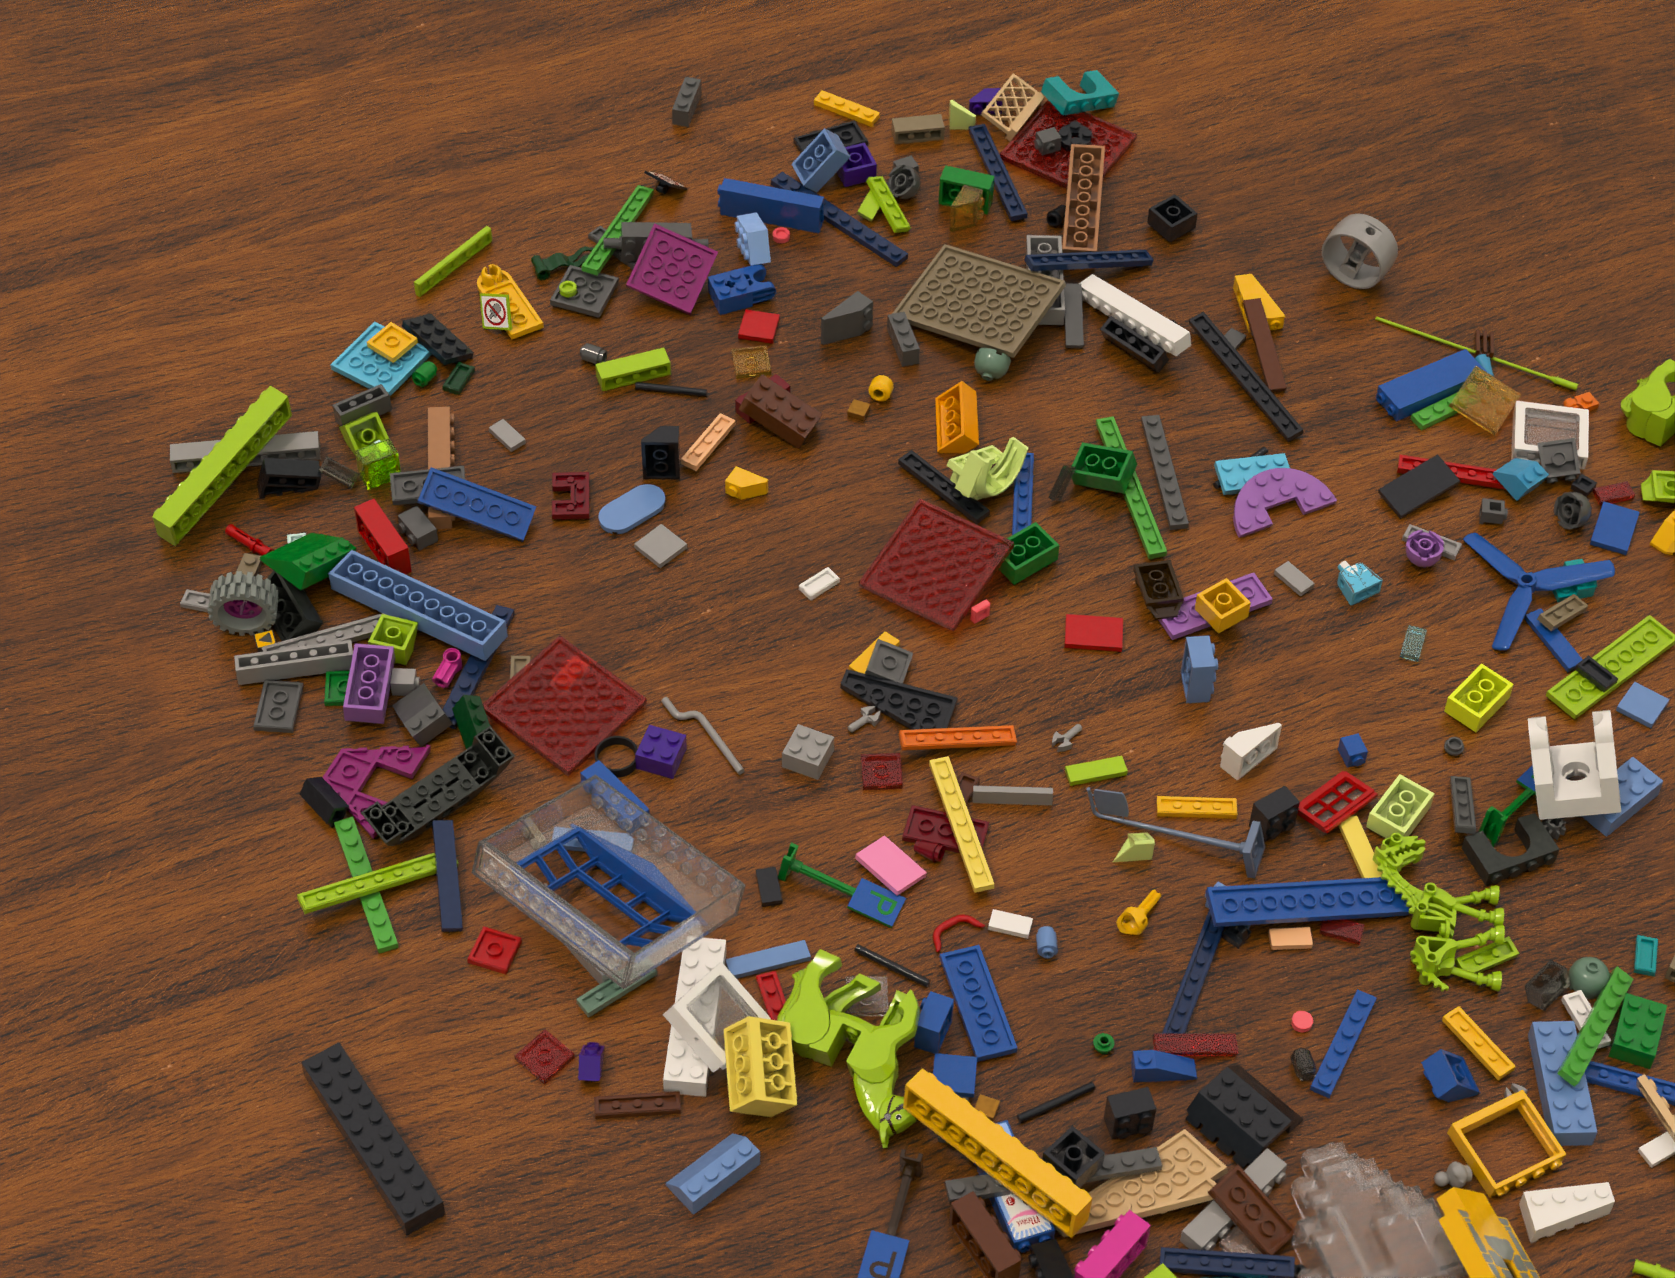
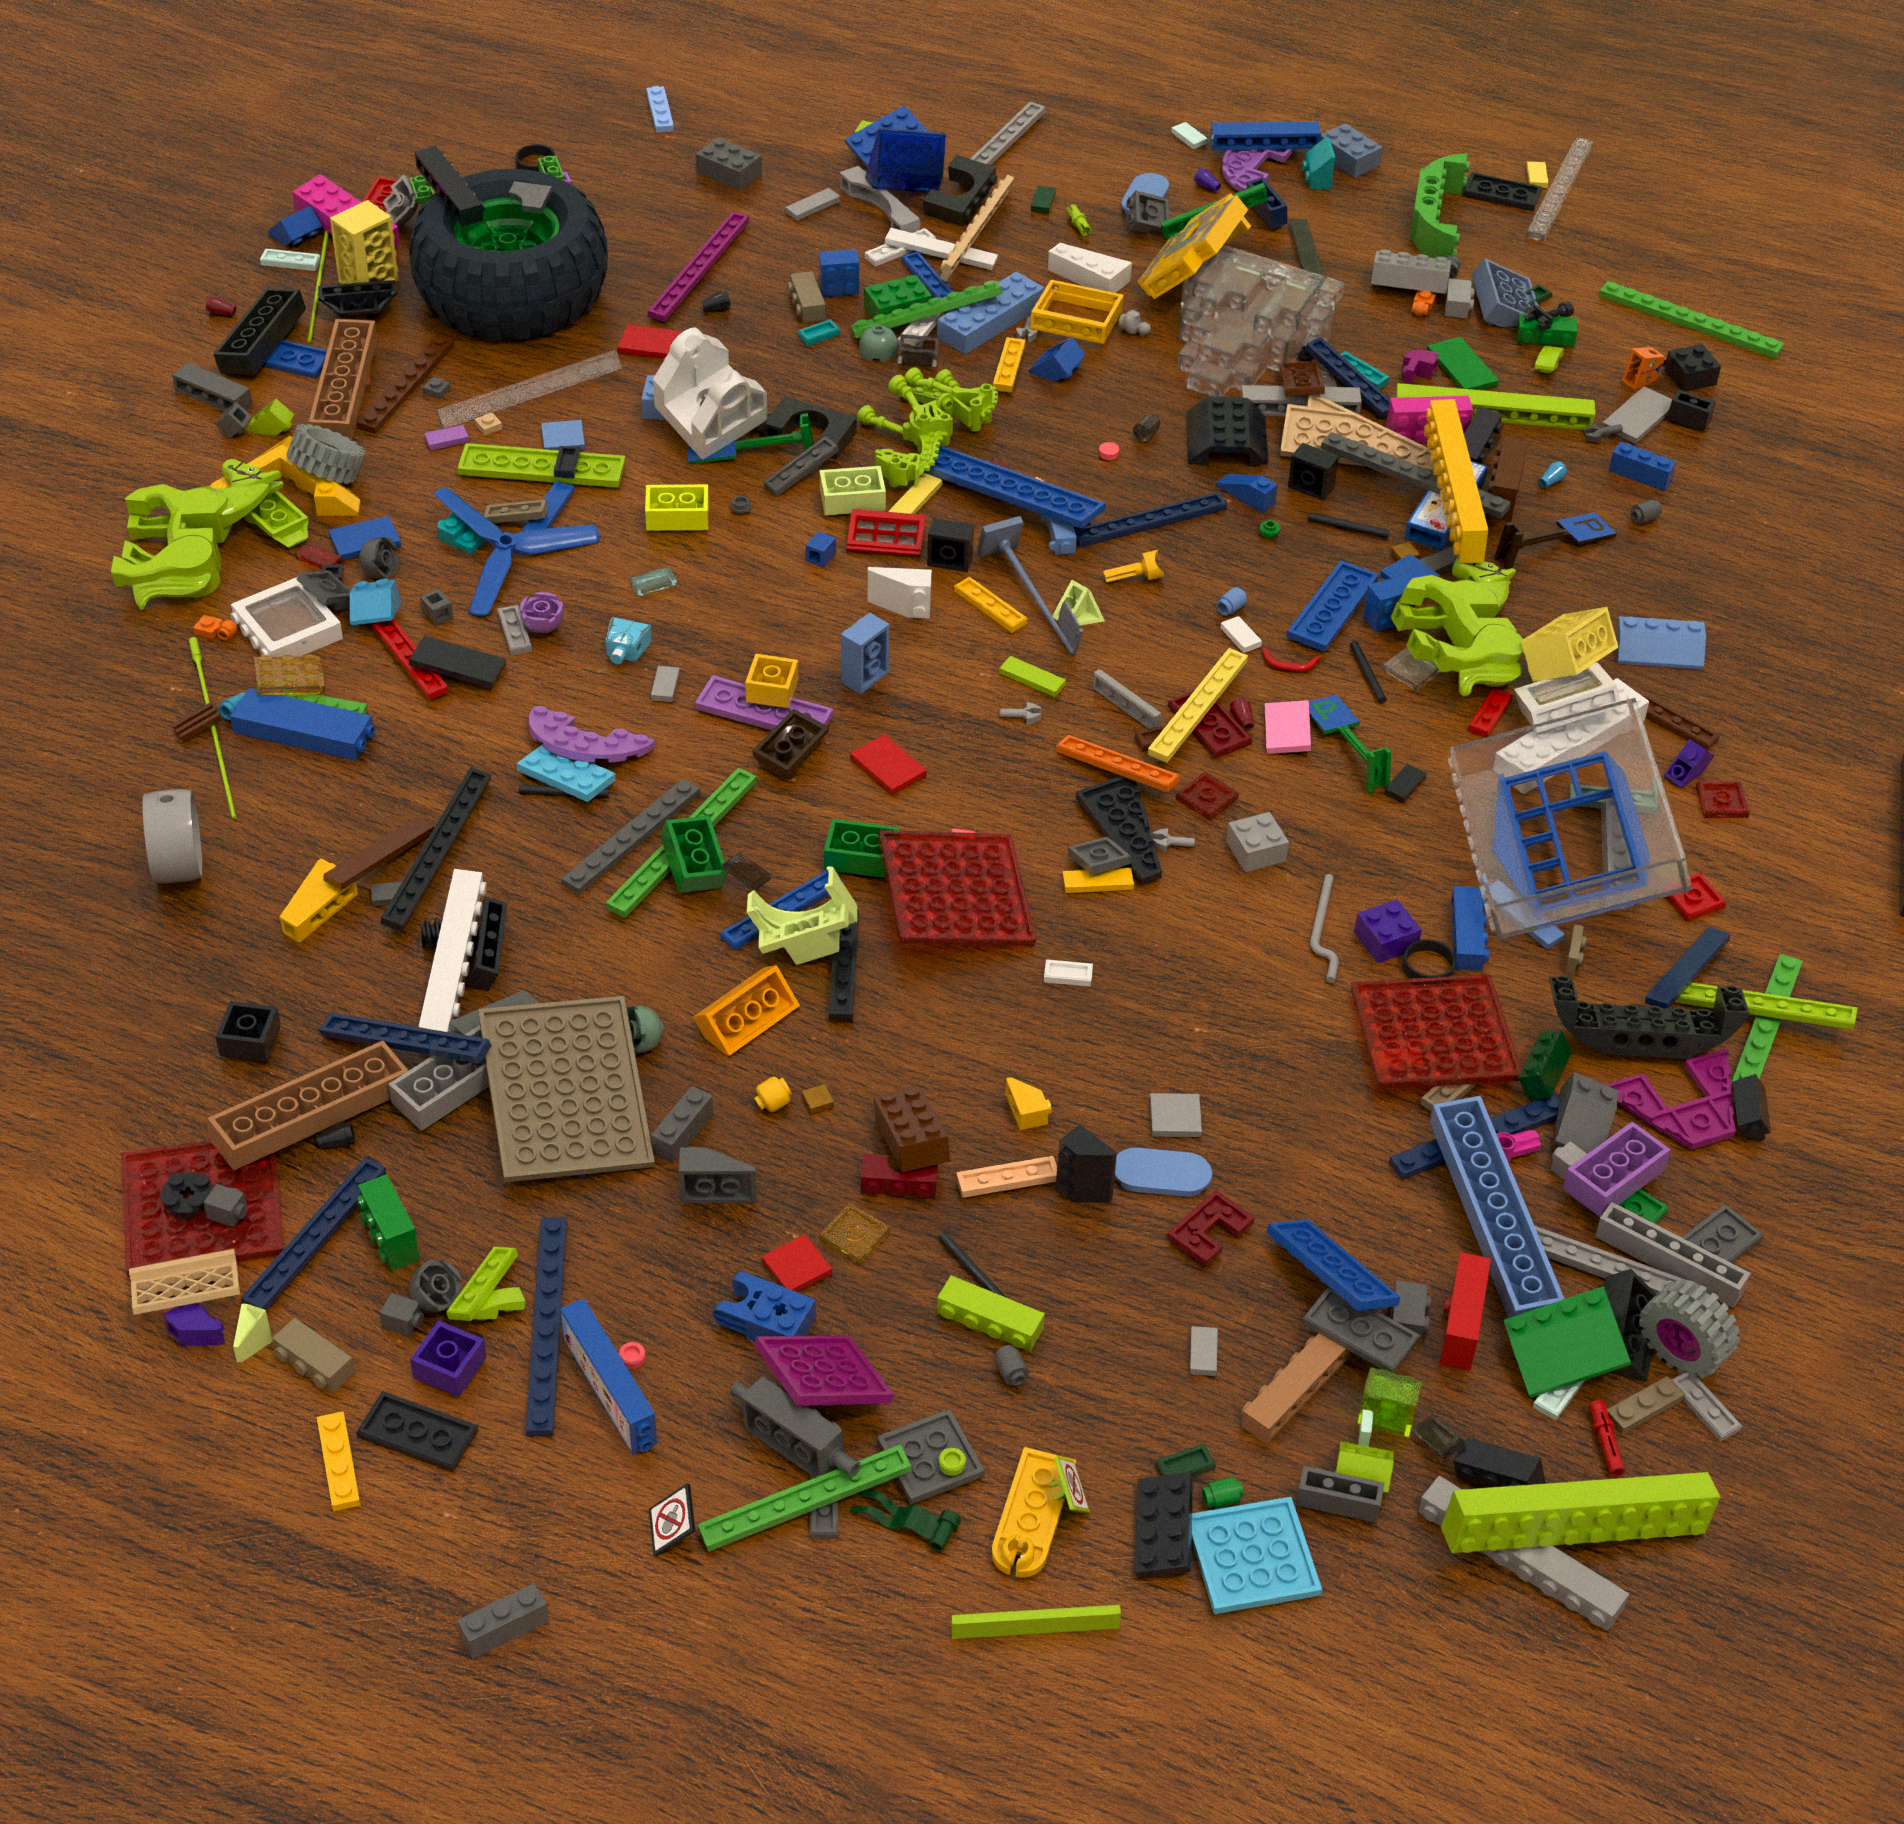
camera: 135 degrees left, 5 degrees down
(392, 342) = (1228, 1547): yellow plate -> none
(396, 633) = (1552, 1200): lime slope -> none
(753, 239) = (692, 1334): light blue brick -> none
(768, 959) = (1448, 732): medium blue tile -> none
(820, 160) = (489, 1373): medium blue brick -> none
(966, 208) = (425, 1199): clear yellow slope -> none
(1067, 101) = (78, 1223): teal arch -> none
(1074, 1156) = (1403, 449): black brick -> none
(1196, 1044) = (1207, 482): clear red tile -> none
(1343, 1044) = (1093, 425): blue plate -> none

